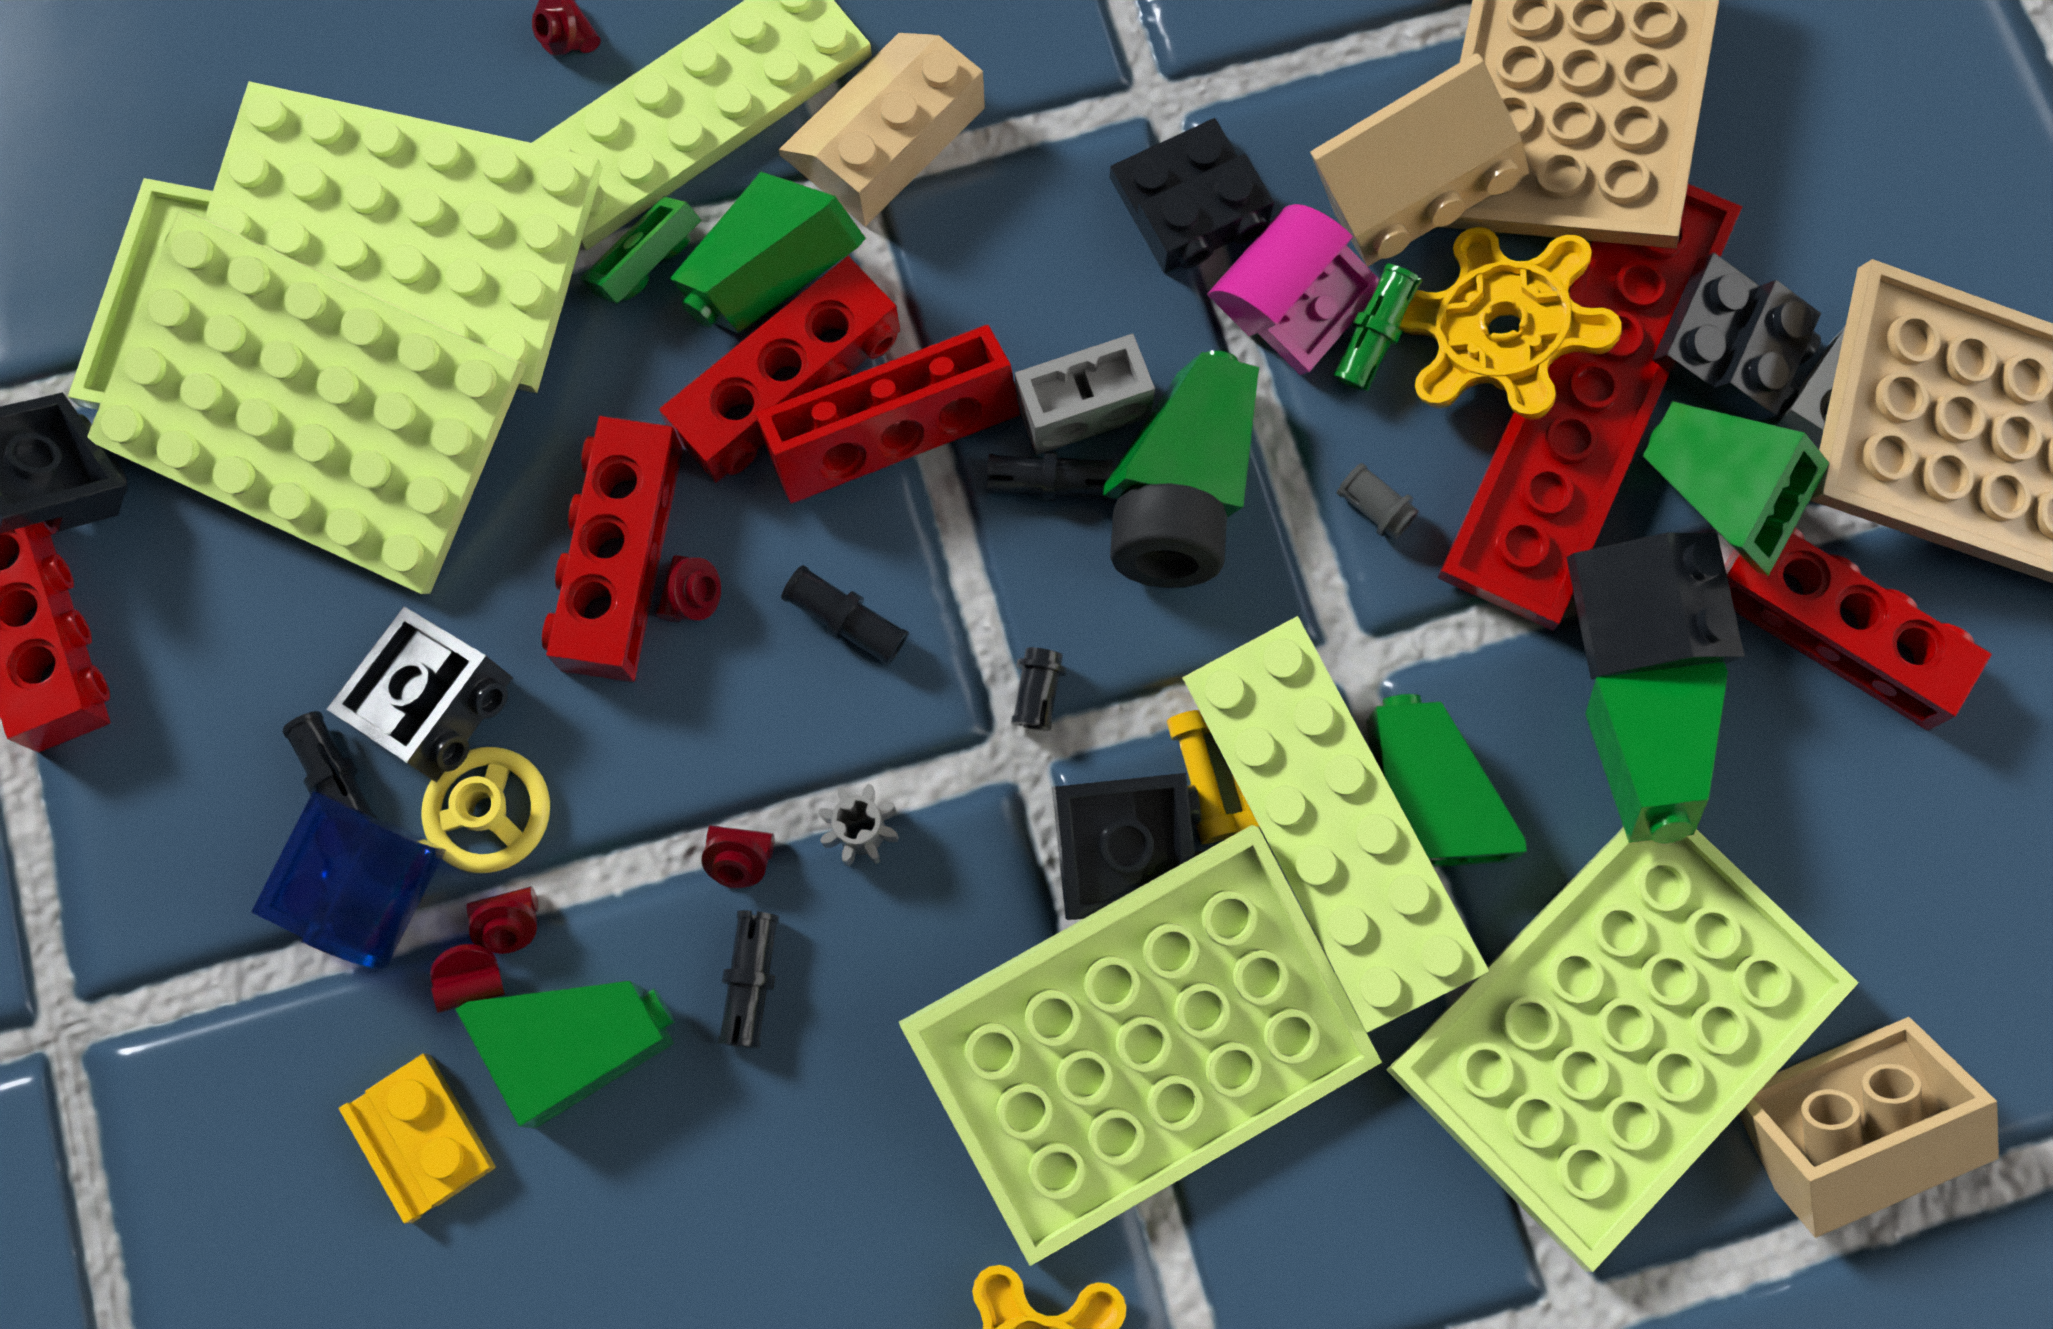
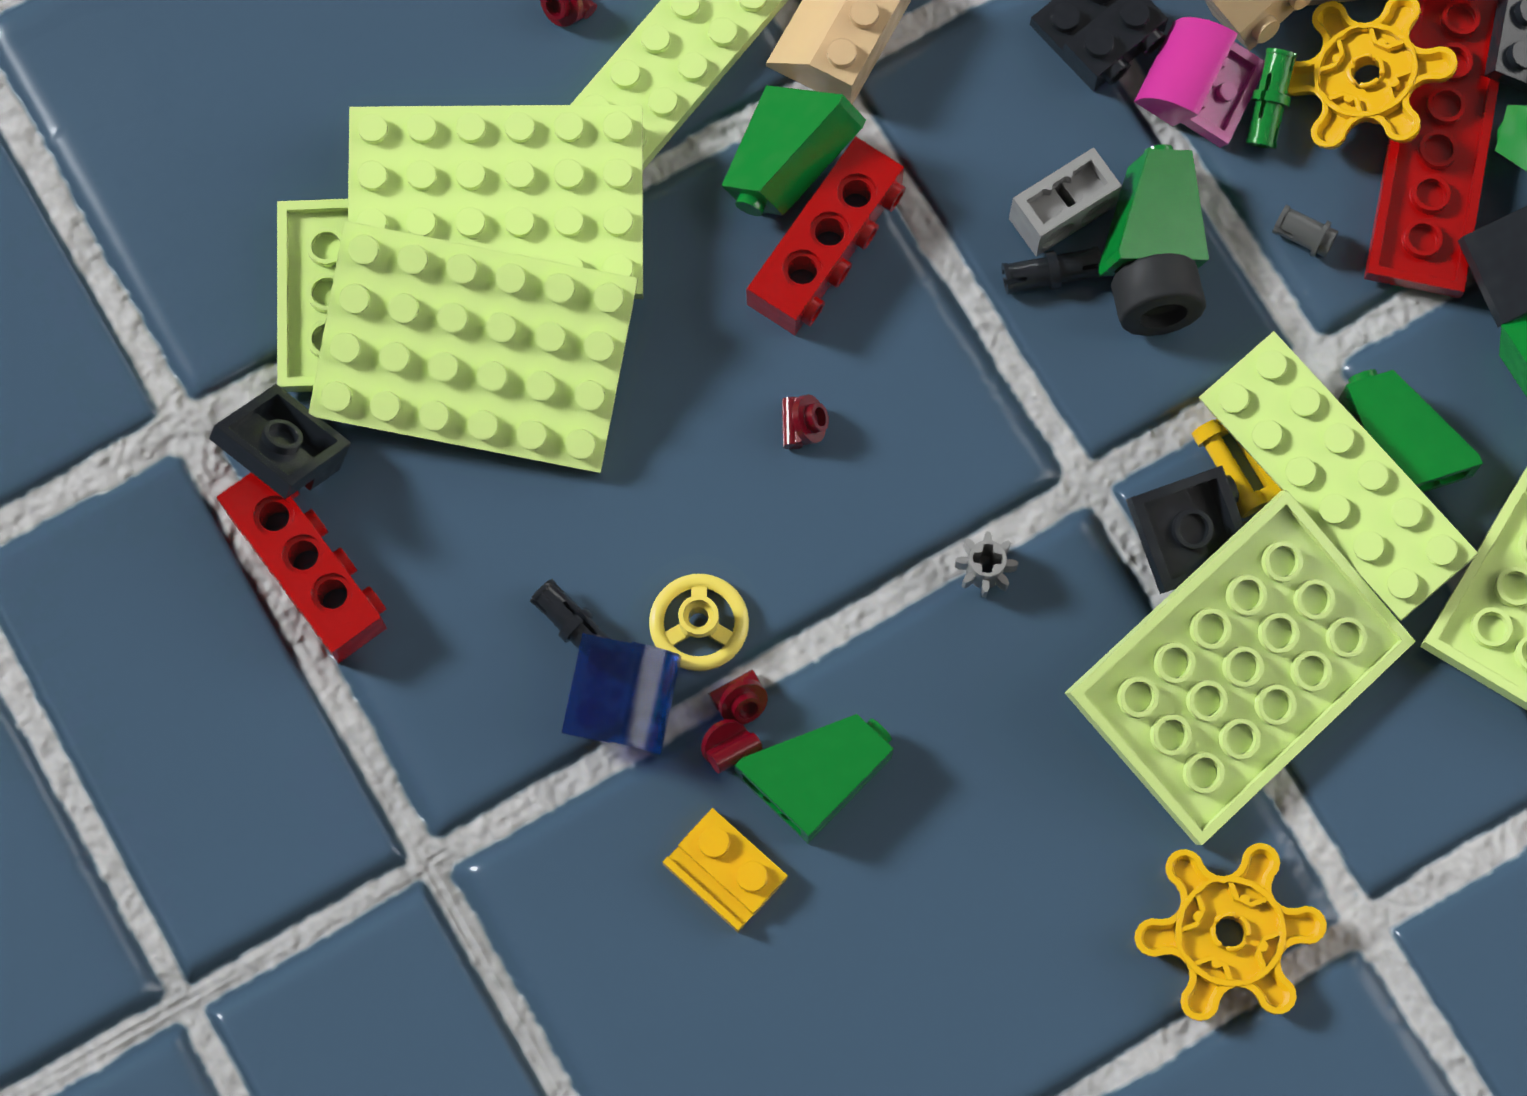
camera: 15 degrees left, 0 degrees up
(422, 694) = (628, 546): black plate -> none
(614, 641) = (738, 327): red brick -> none
(655, 237) = (686, 167): green plate -> none
(737, 855) = (900, 610): dark red plate -> none
(748, 979) = (936, 696): black pin -> none
(844, 615) = (928, 412): black pin -> none
(889, 413) = (921, 251): red brick -> none
(1037, 688) = (1089, 432): black pin -> none

